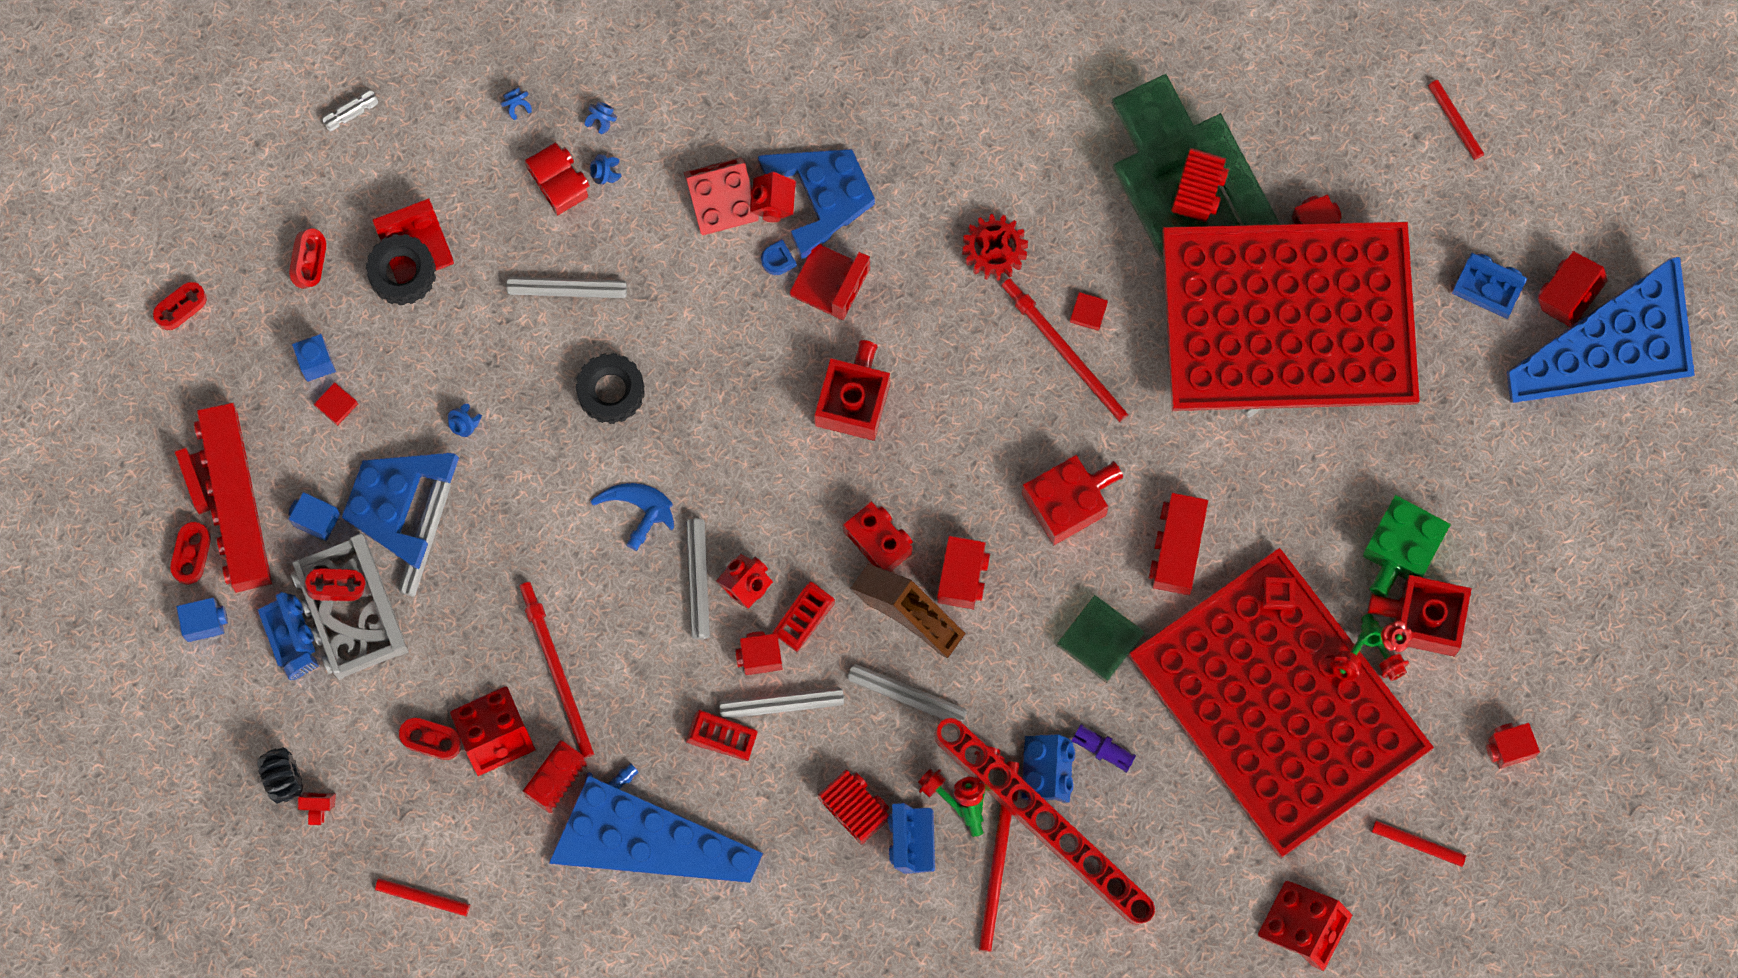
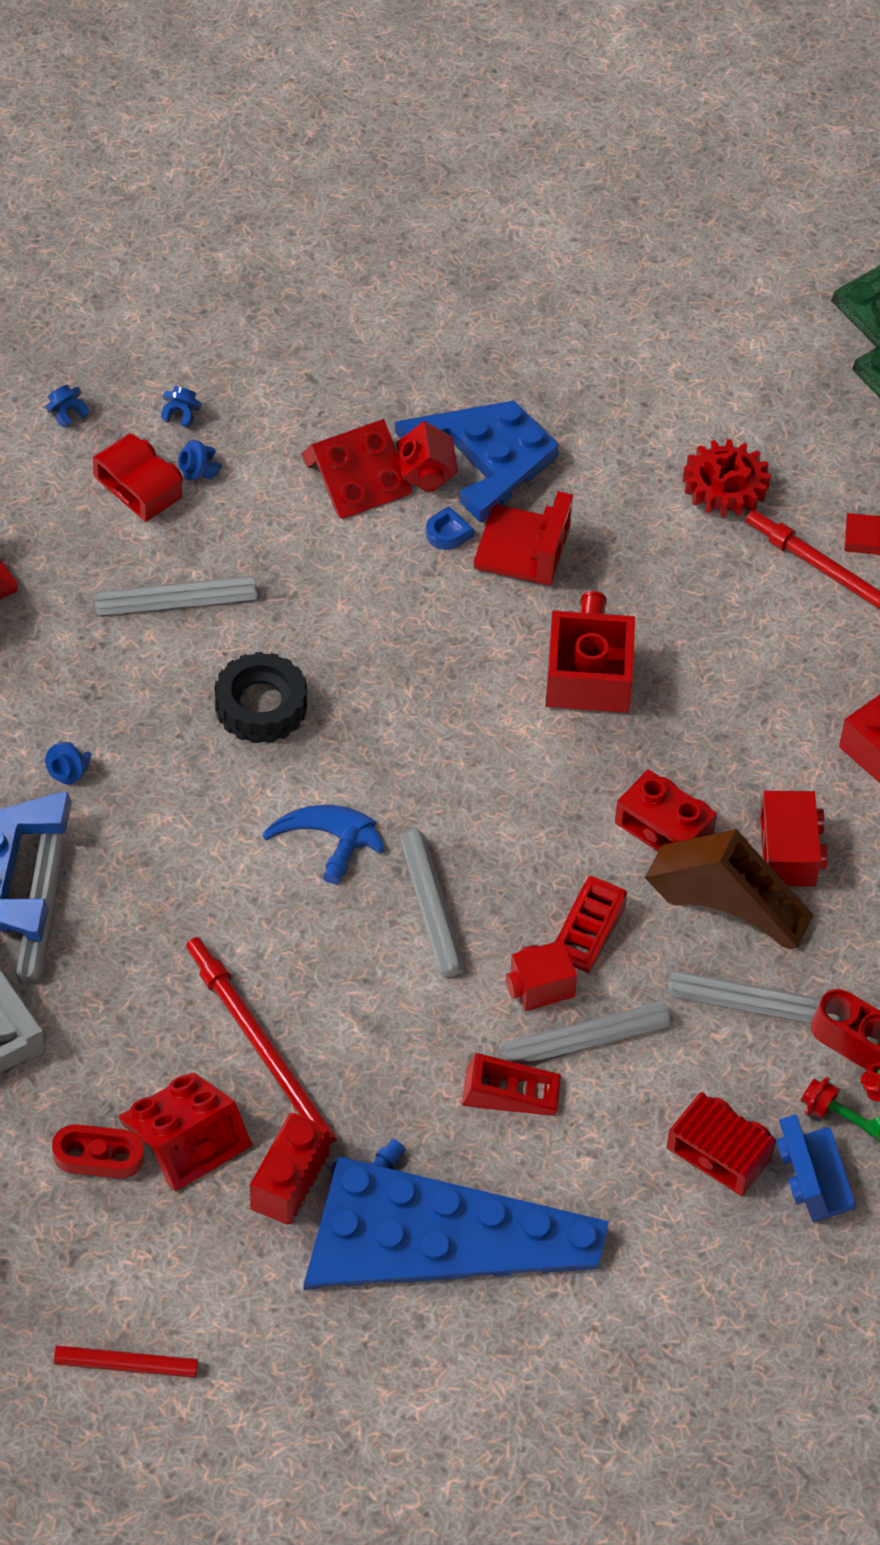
camera: 15 degrees left, 20 degrees down
(745, 580) = (499, 889): red brick -> none

